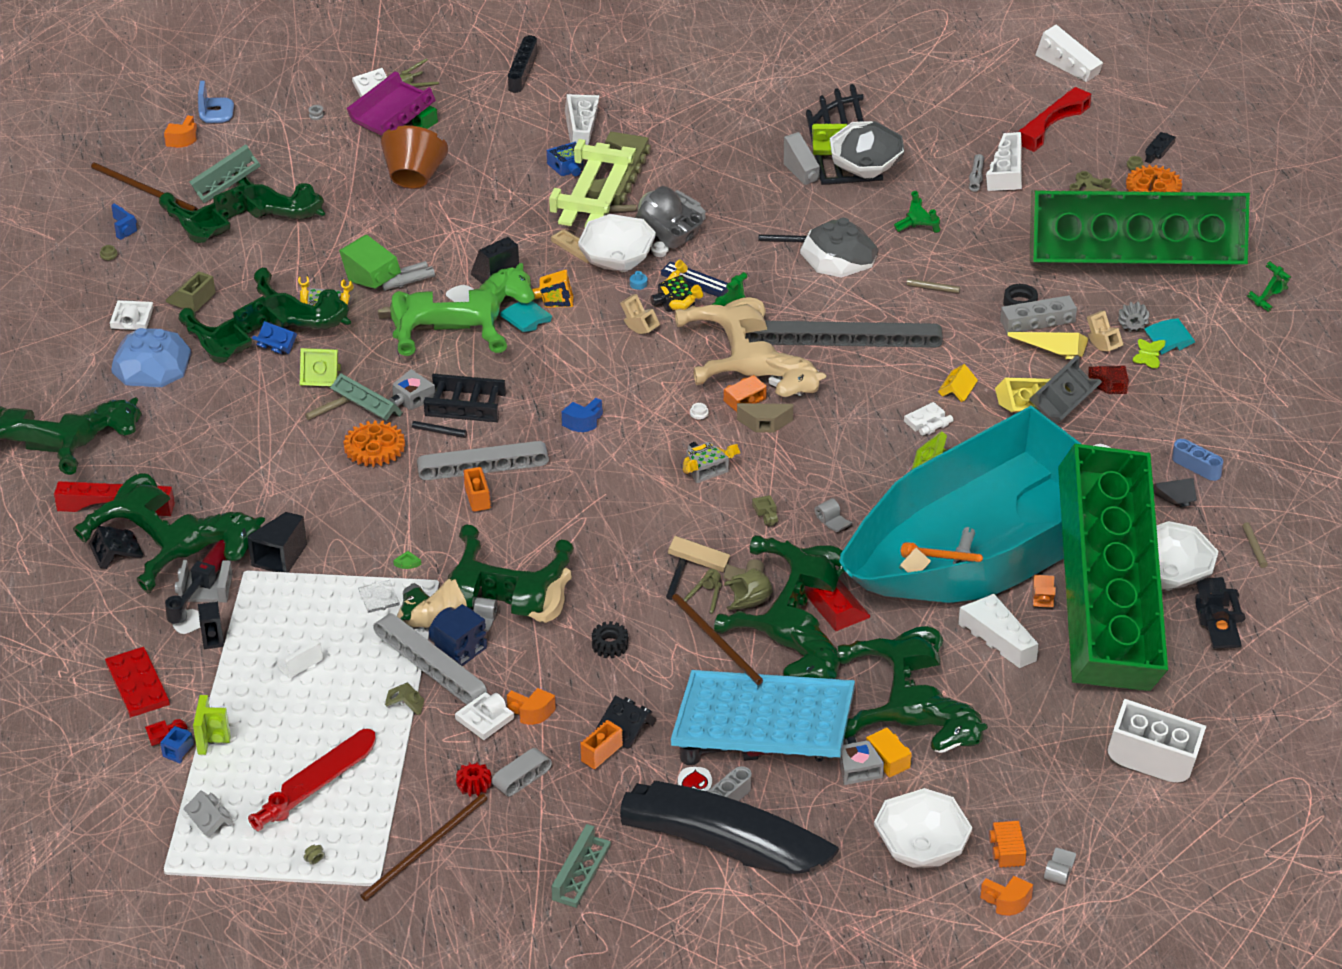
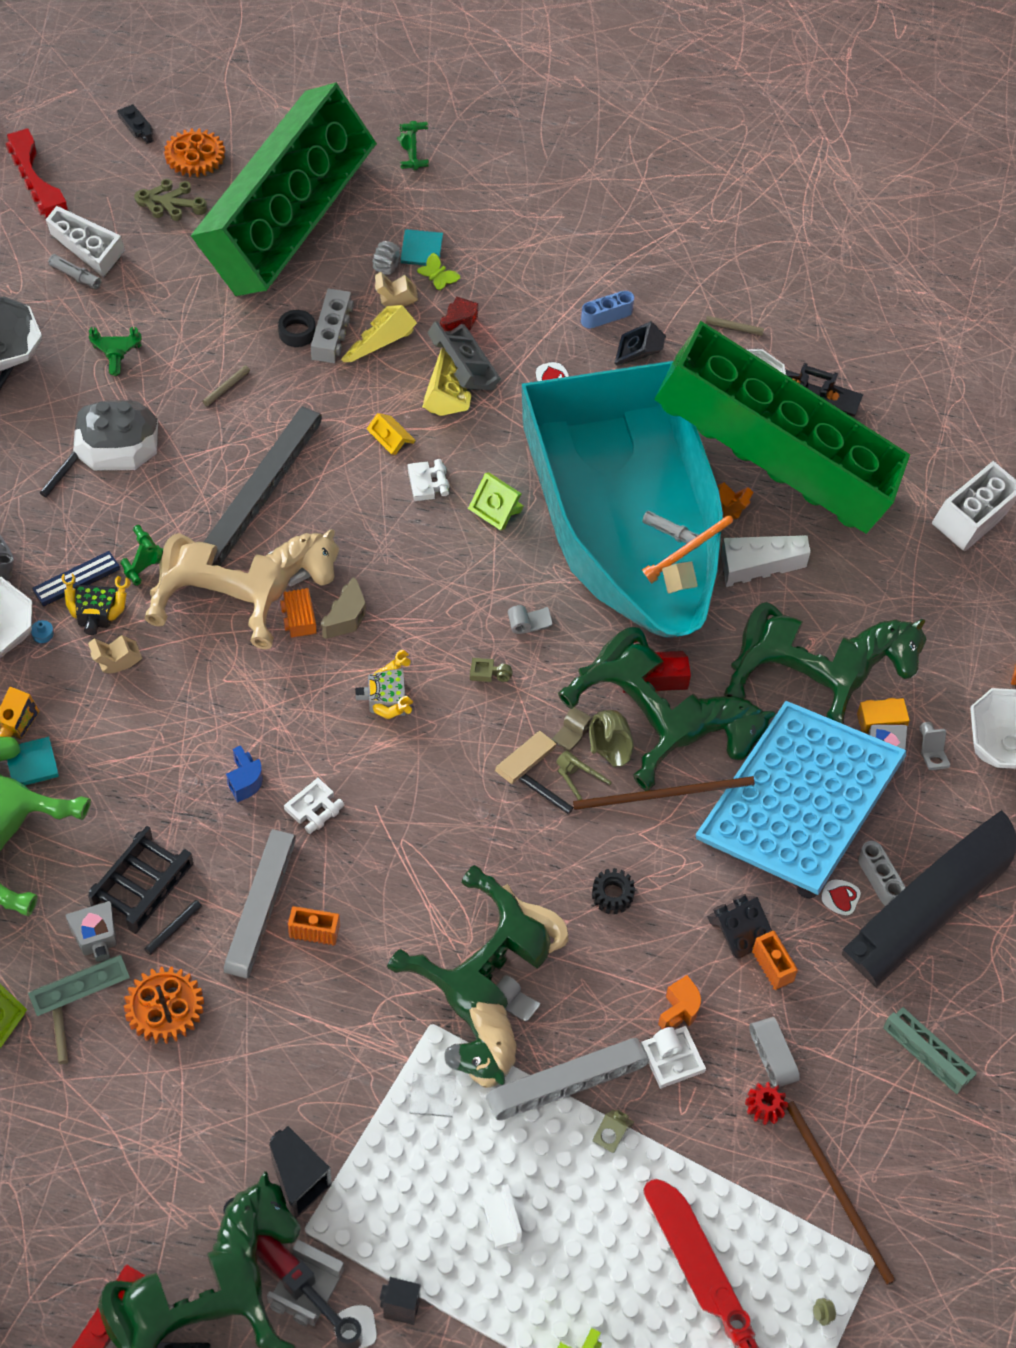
camera: 70 degrees left, 15 degrees up
(407, 561) = (380, 1044): bright green tile -> none
(459, 633) = (549, 1034): dark blue piece -> none
(581, 455) = (309, 801): none -> white plate
(699, 411) = (299, 665): white plate -> none
(882, 791) = (933, 746): none -> light grey bracket
(1135, 161) = (150, 150): olive plate -> none

